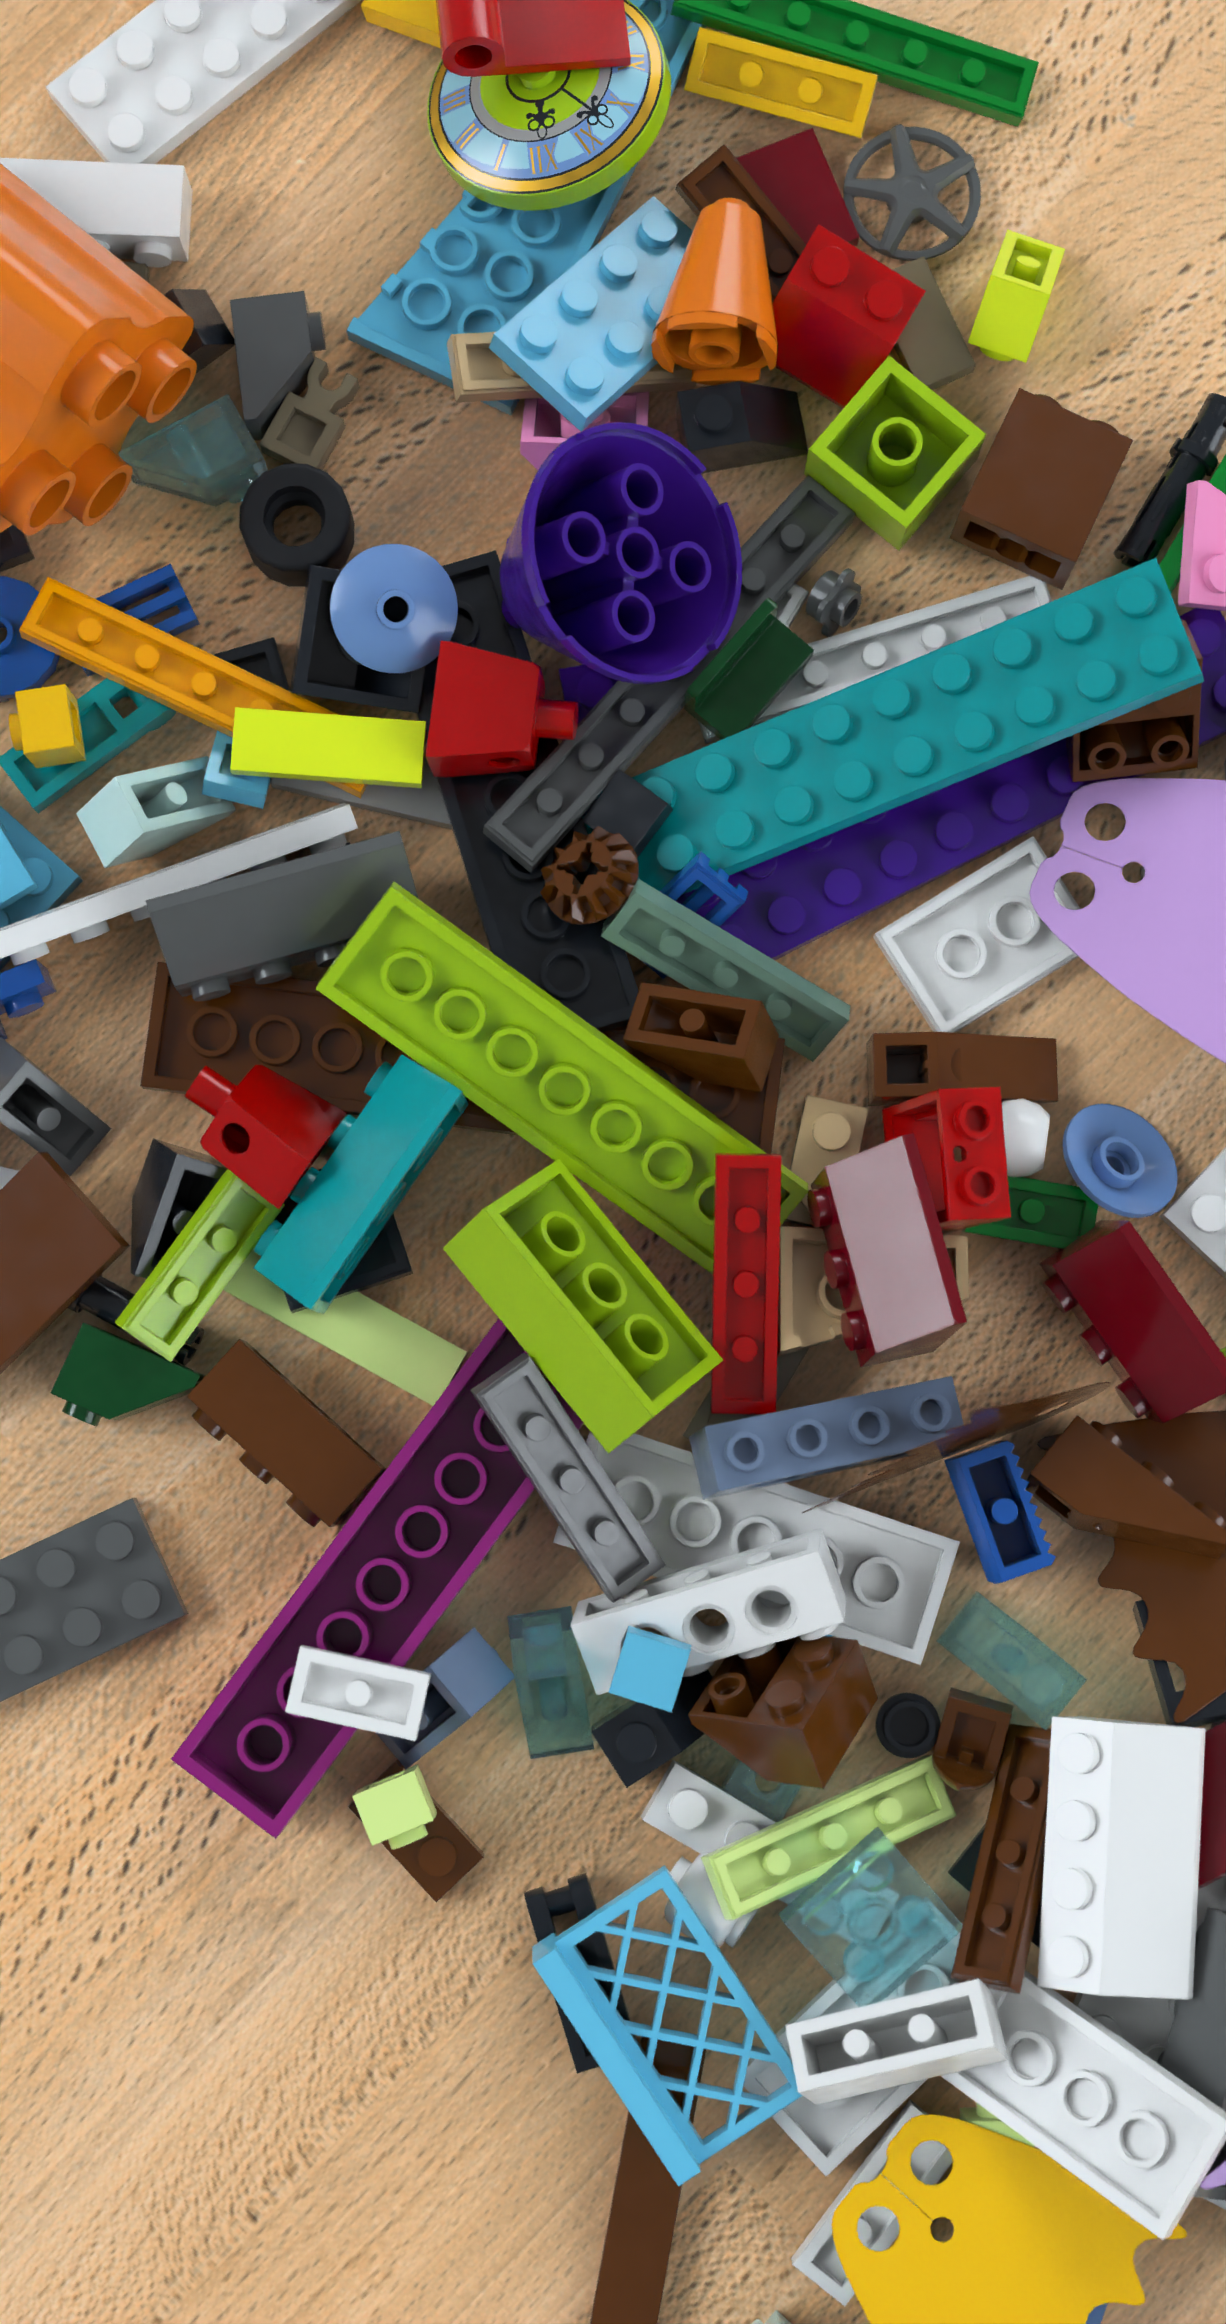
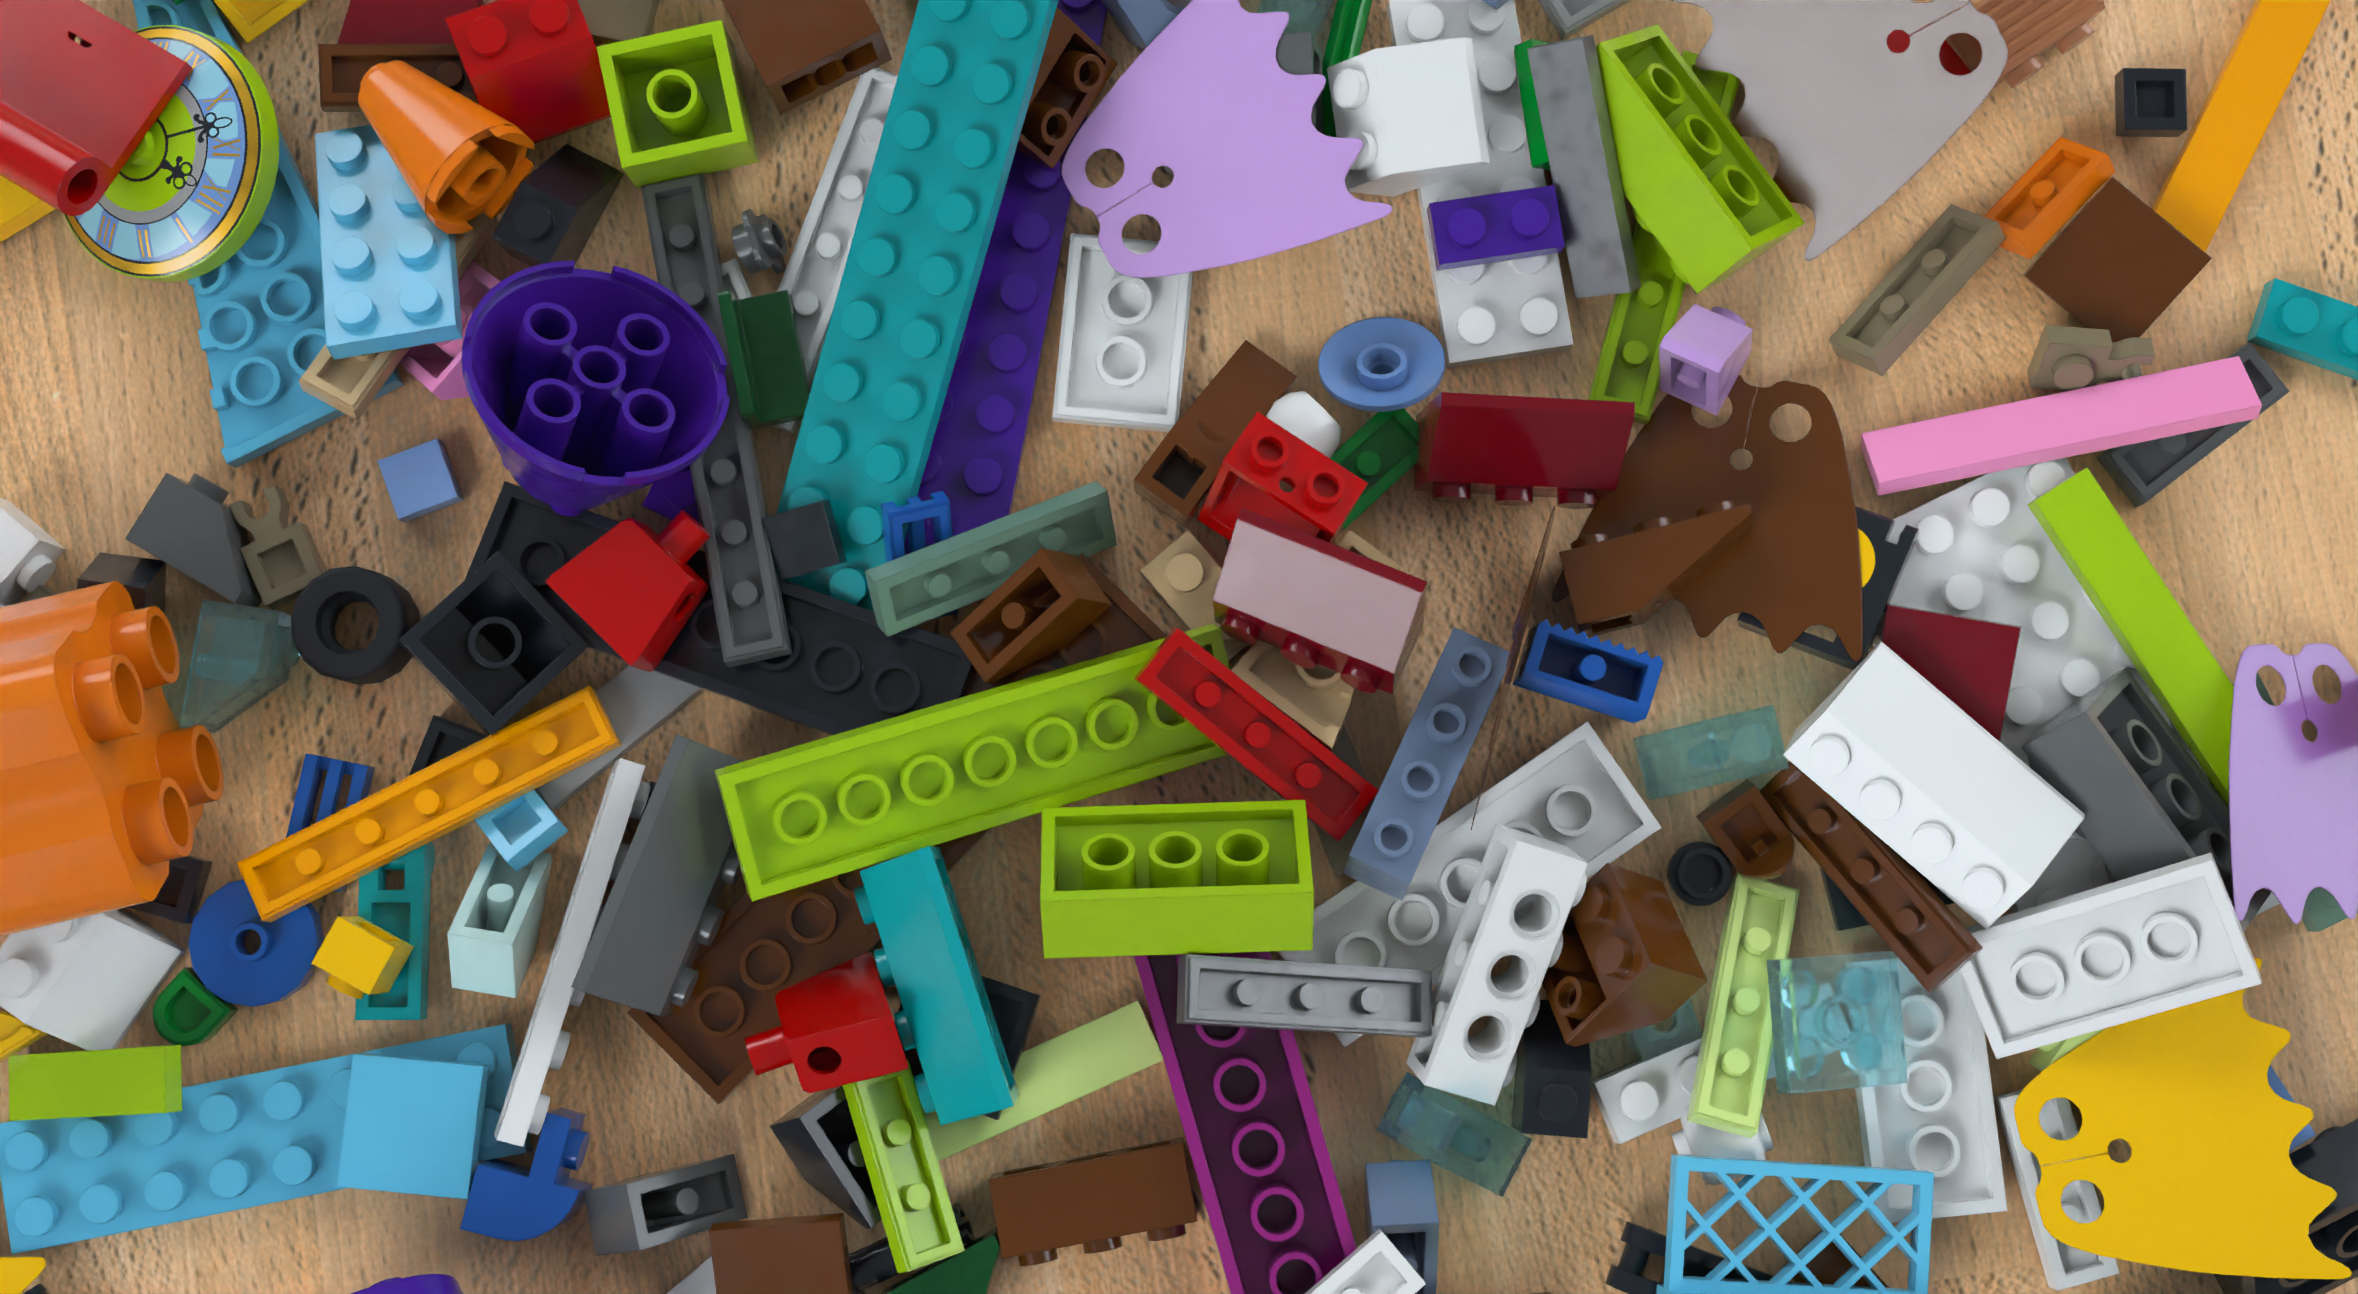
camera: 55 degrees left, 0 degrees up
(328, 747) = (560, 740): neon yellow tile -> none
(359, 603) = (452, 605): medium blue dish -> none
(446, 486) = (420, 480): none -> light blue tile
(600, 893) = (853, 611): reddish brown gear -> none
(650, 1668) = (1507, 1047): medium azure tile -> none
(896, 2042) = (1948, 1076): white brick -> none

